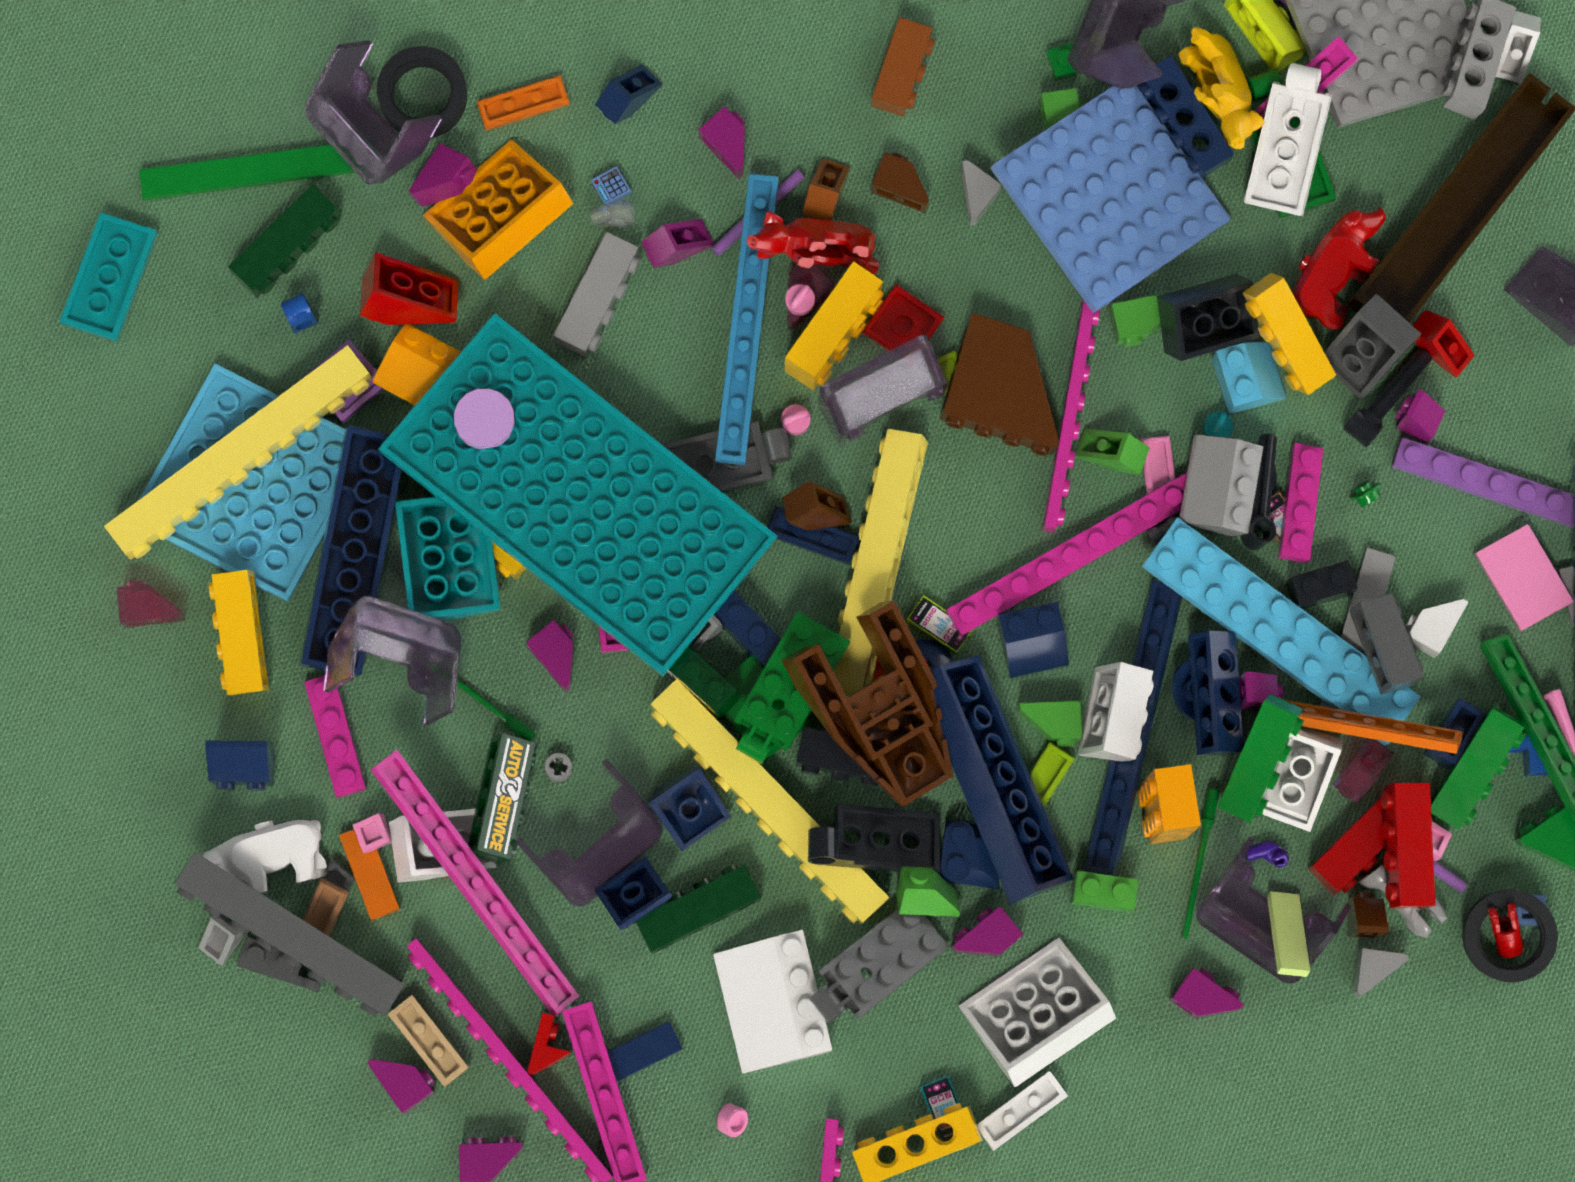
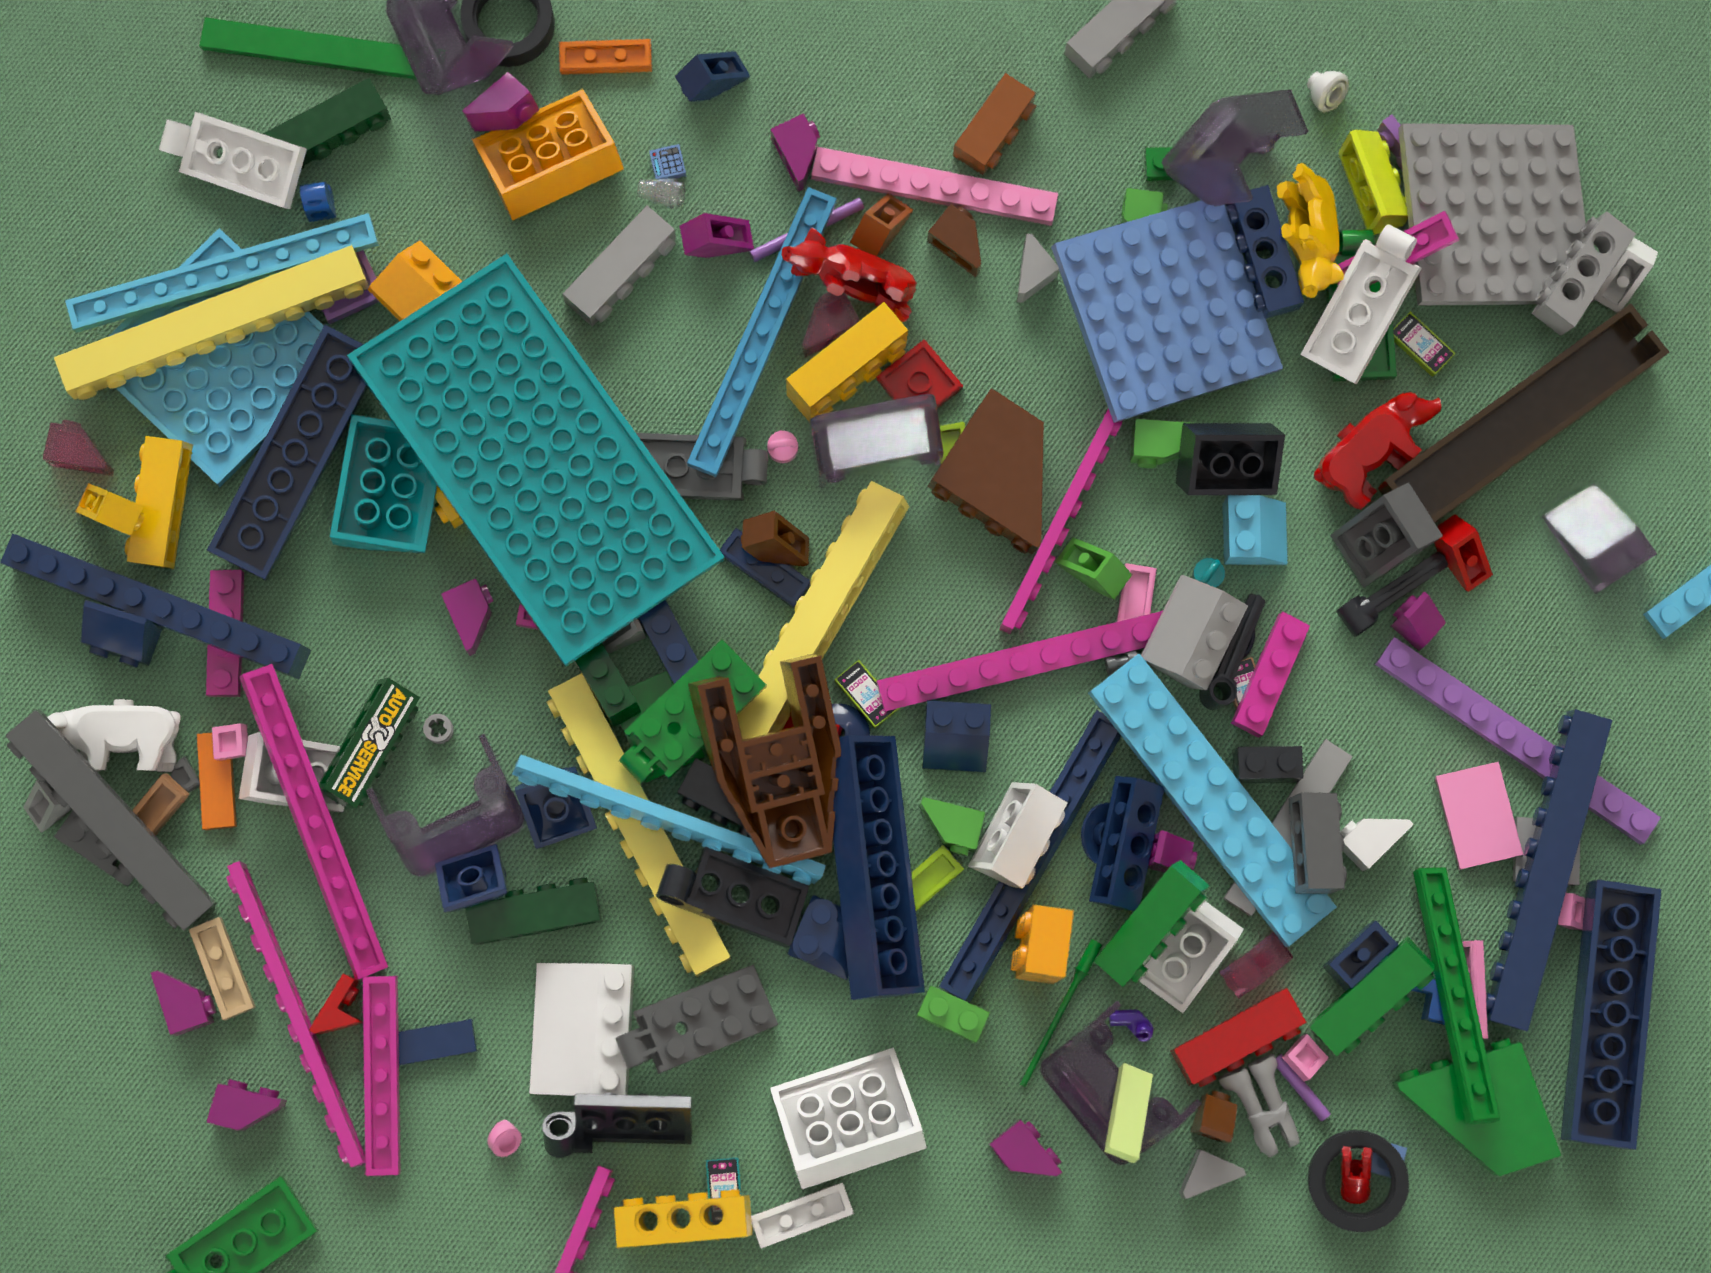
camera: 15 degrees right, 0 degrees up
(108, 277) = (138, 114): teal plate -> none
(198, 651) = (110, 509): none -> yellow slope
(225, 294) = (249, 161): none -> white hinge
(230, 405) = (217, 273): none -> medium azure plate
(275, 728) = (156, 606): none -> dark blue brick
(404, 637) = (317, 552): windscreen -> none
(406, 294) = (429, 211): red slope -> none
(484, 418) = (462, 355): lavender tile -> none
(507, 719) = (402, 666): green piece -> none
(785, 789) = (656, 816): none -> medium azure plate
(800, 299) = (820, 326): bright pink tile -> none
(821, 1066) = (618, 1120): none -> black hinge
(863, 139) = (934, 186): none -> bright pink plate
(925, 893) = (769, 964): bright green slope -> none
(990, 937) = (823, 1026): magenta slope -> none
(1289, 334) = (1307, 499): yellow brick -> none
(1350, 162) = (1422, 344): none -> tile
(1366, 493) = (1340, 683): green plate -> none
(1380, 728) = (1284, 927): orange tile -> none
(1408, 845) = (1279, 1058): red brick -> none

